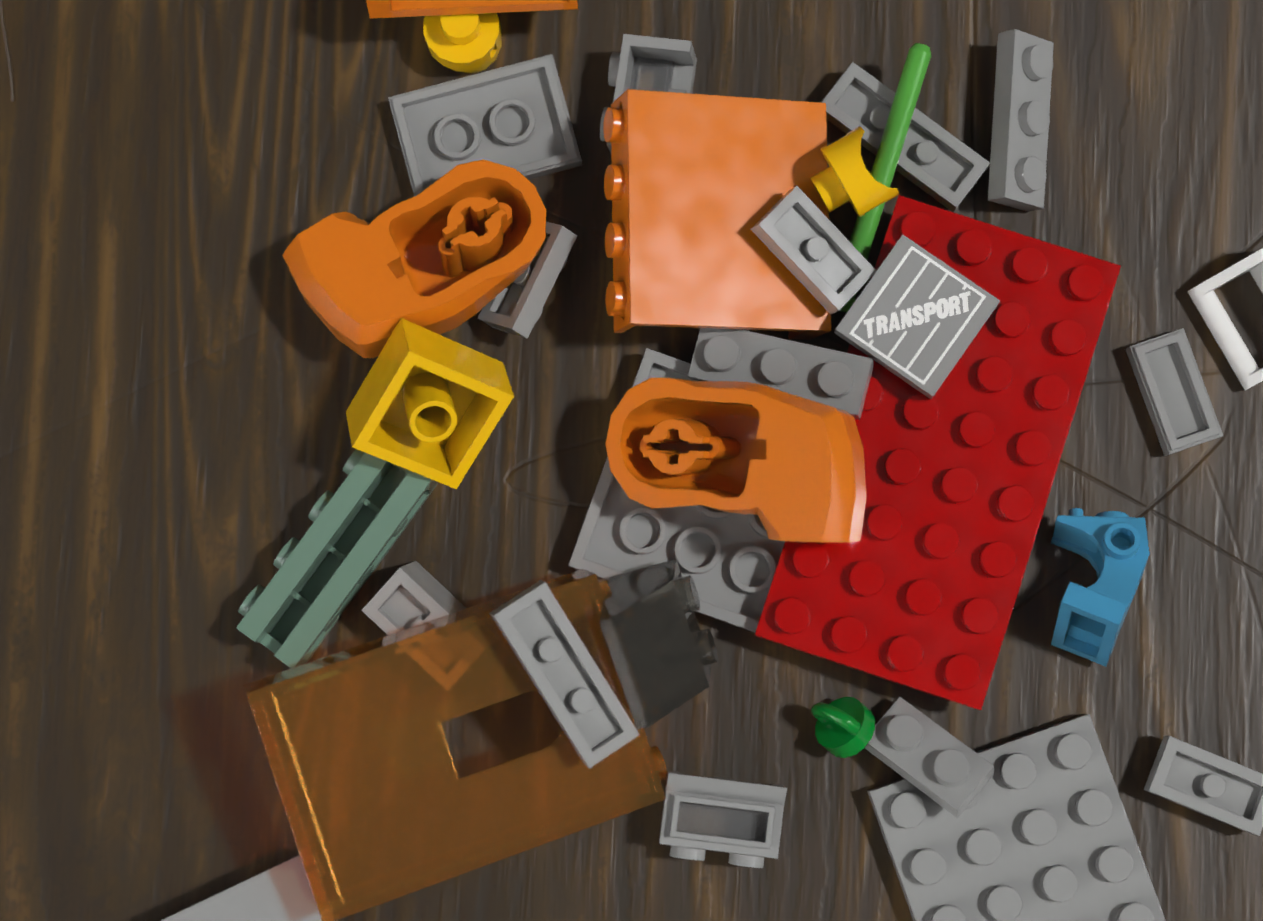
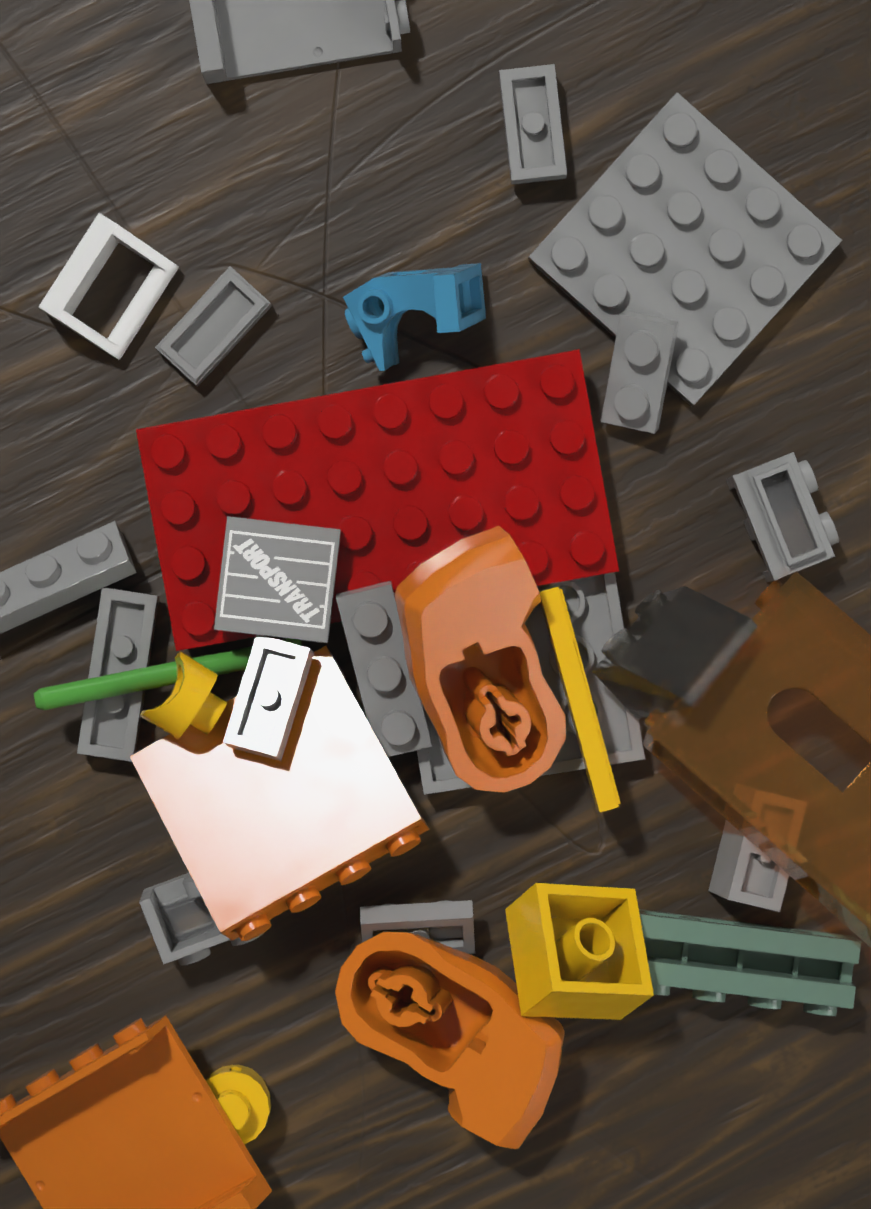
camera: 115 degrees left, 5 degrees up
(497, 115) = (295, 1036): light grey tile -> none
(564, 673) = (746, 711): light grey plate -> none
(658, 532) = (579, 699): none -> yellow tile
(843, 726) = (652, 455): green tile -> none

